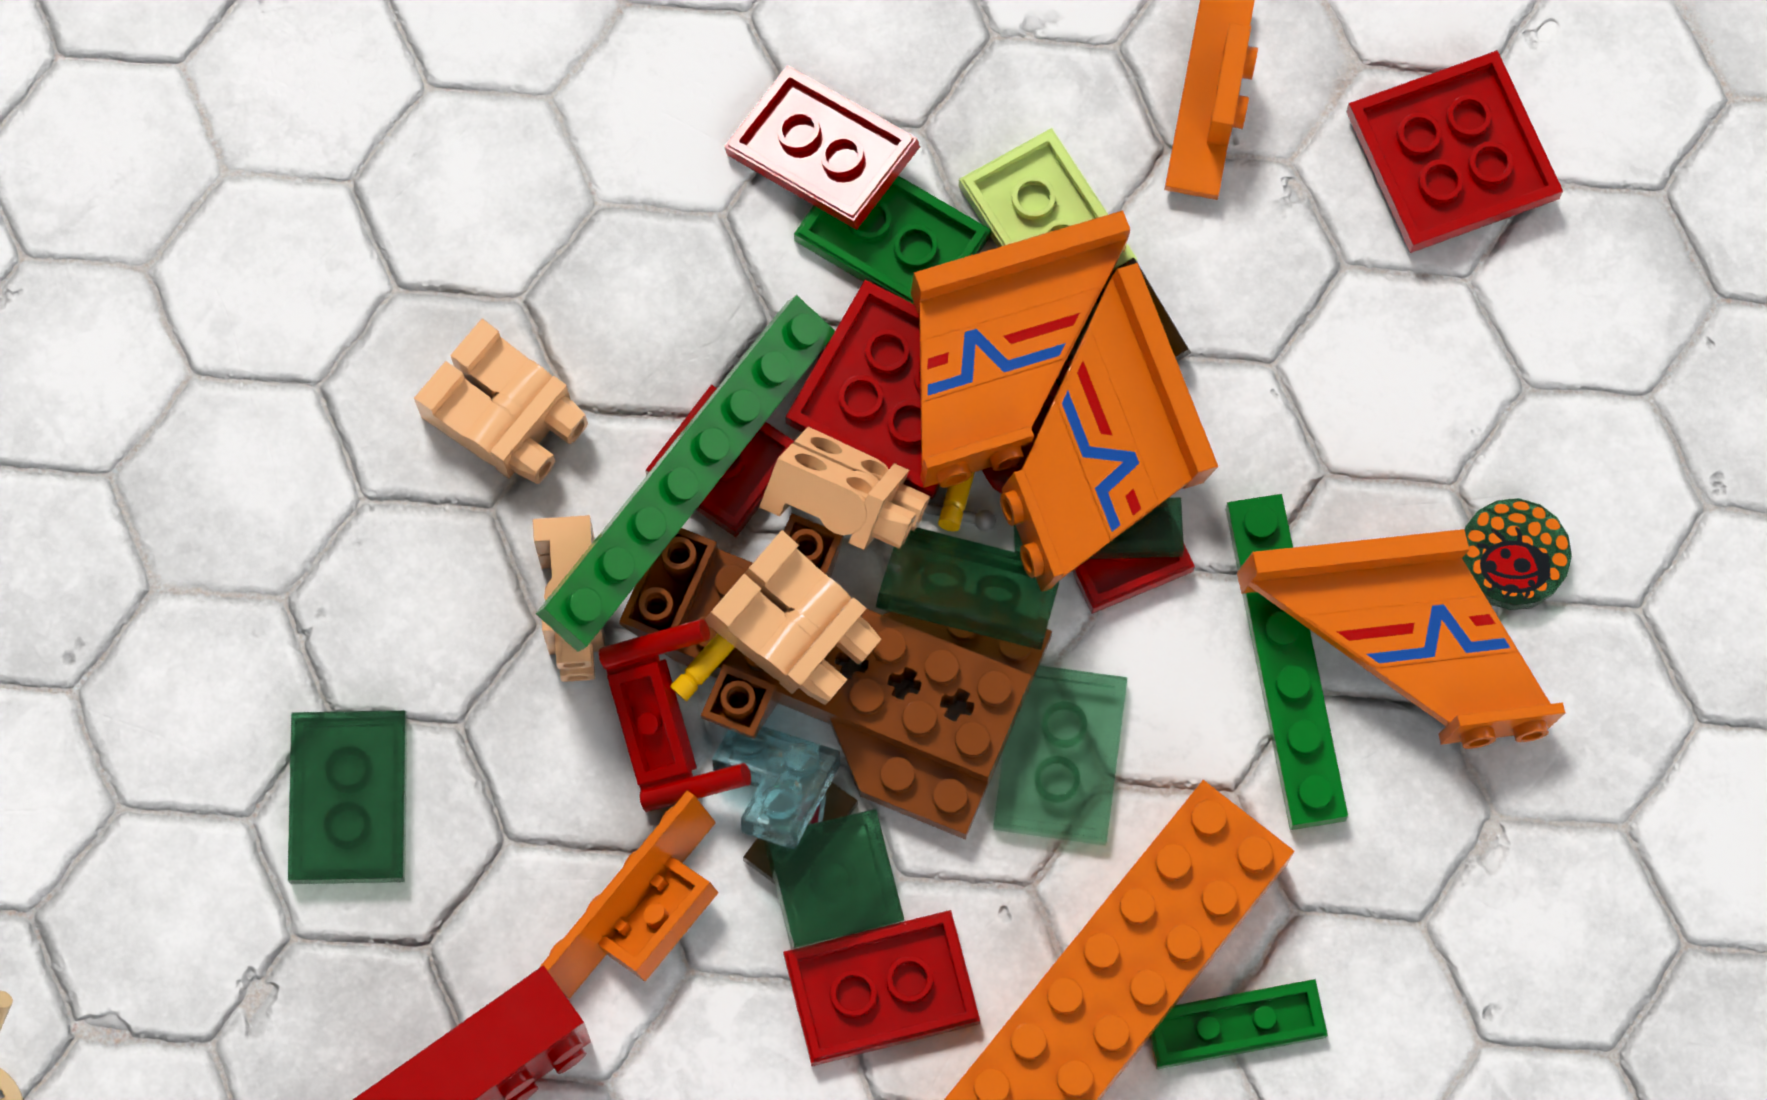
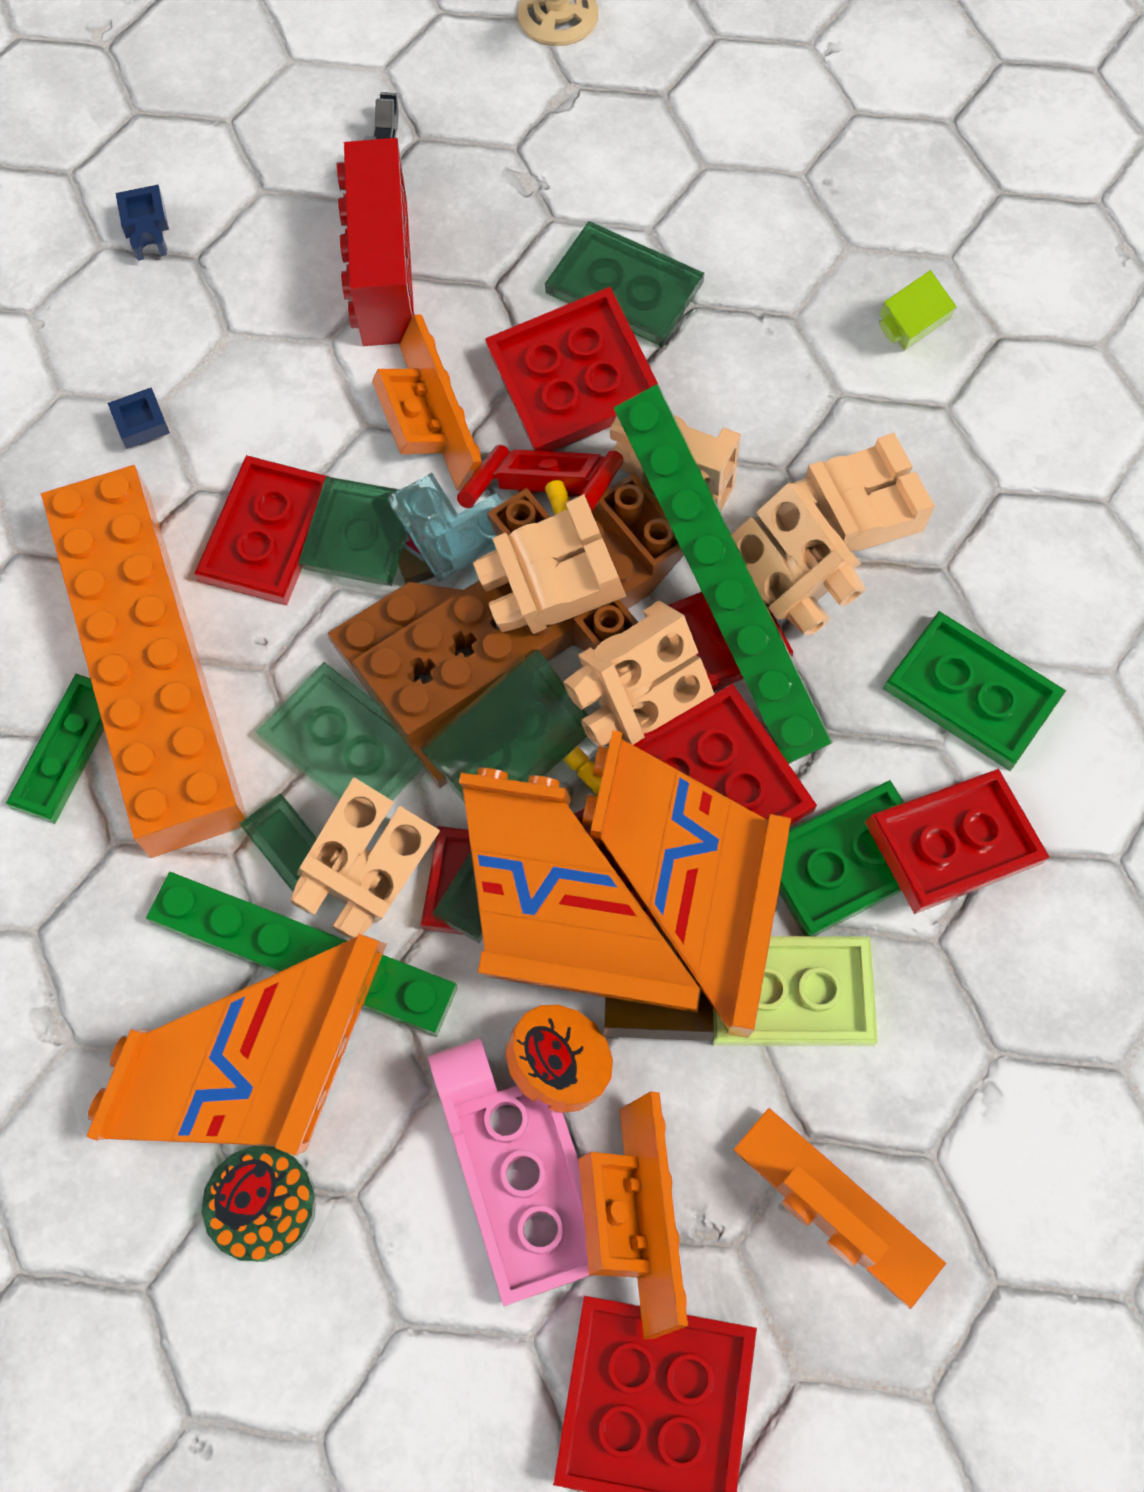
camera: 125 degrees right, 5 degrees down
(233, 455) = (916, 311): none -> lime brick
(508, 772) = (570, 369): none -> red plate
(620, 418) = (797, 559): none -> light nougat hips
(648, 207) = (974, 690): none -> green tile
(1174, 644) = (352, 873): none -> light nougat hips
(1196, 732) = (280, 837): none -> clear green tile
(1238, 370) = (559, 1058): none -> tile
(1318, 429) = (485, 1156): none -> bright pink hinge
(1326, 235) = (633, 1217): none -> orange bracket

